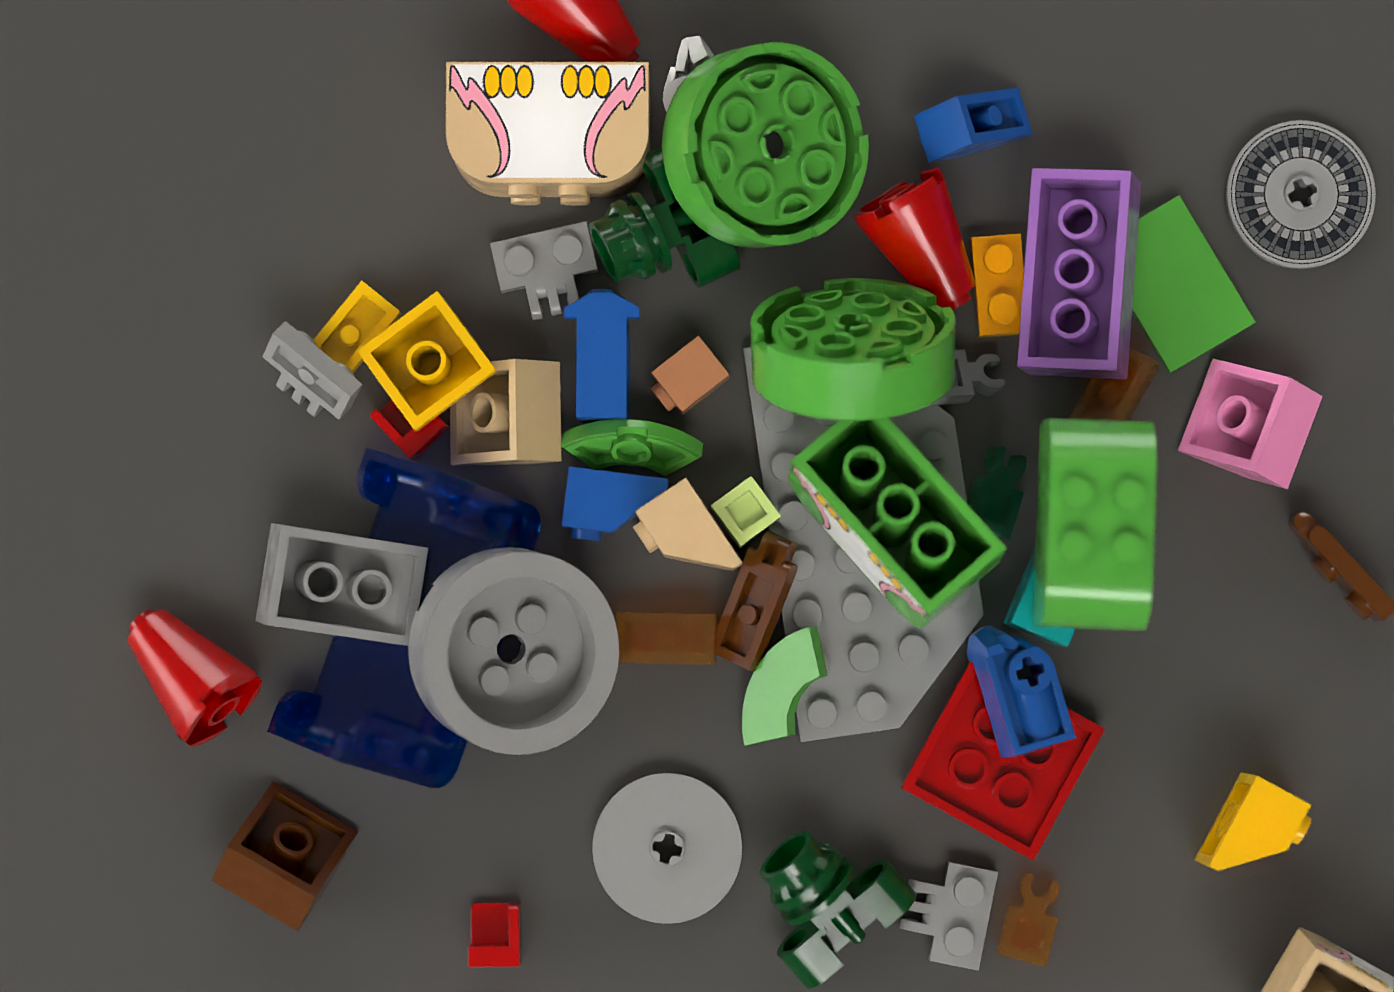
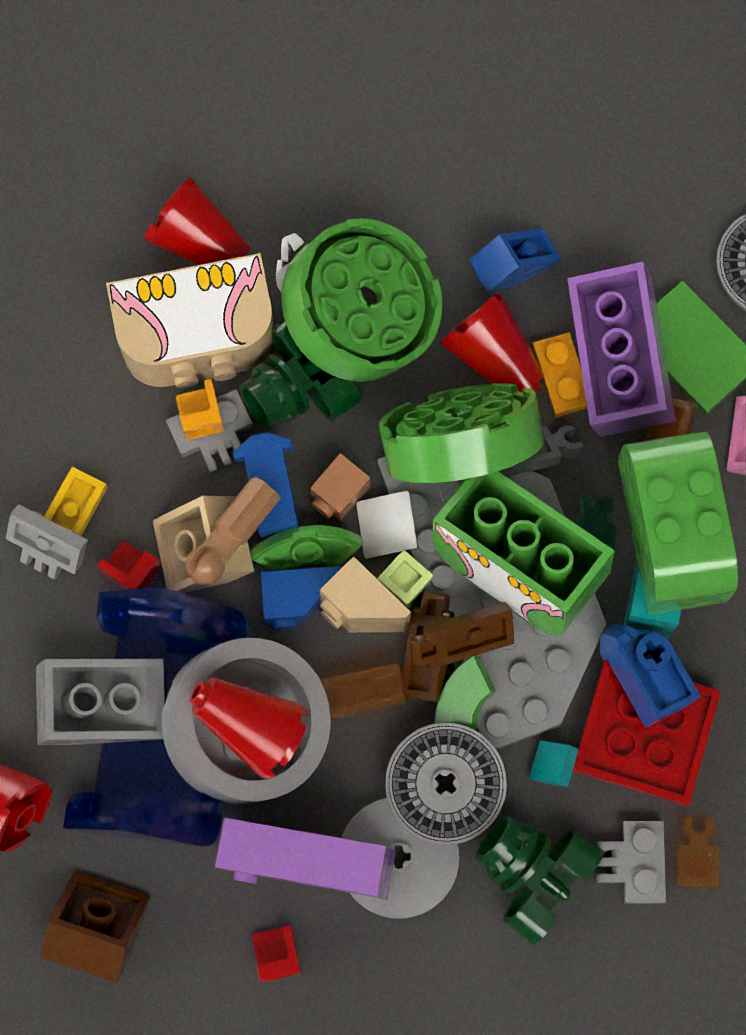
camera: 15 degrees left, 10 degrees down
(427, 361) = (133, 513): yellow slope -> none
(517, 663) = (250, 723): none -> red cone
(533, 245) = (199, 412): none -> light orange panel
(543, 412) = (232, 529): none -> medium nougat piece
(552, 834) = (304, 859): none -> medium lavender brick
(738, 434) = (386, 524): none -> white sticker
(746, 734) = (413, 783): none -> piece
(801, 602) = (463, 636): none -> reddish brown hinge
(879, 775) = (553, 763): none -> teal tile

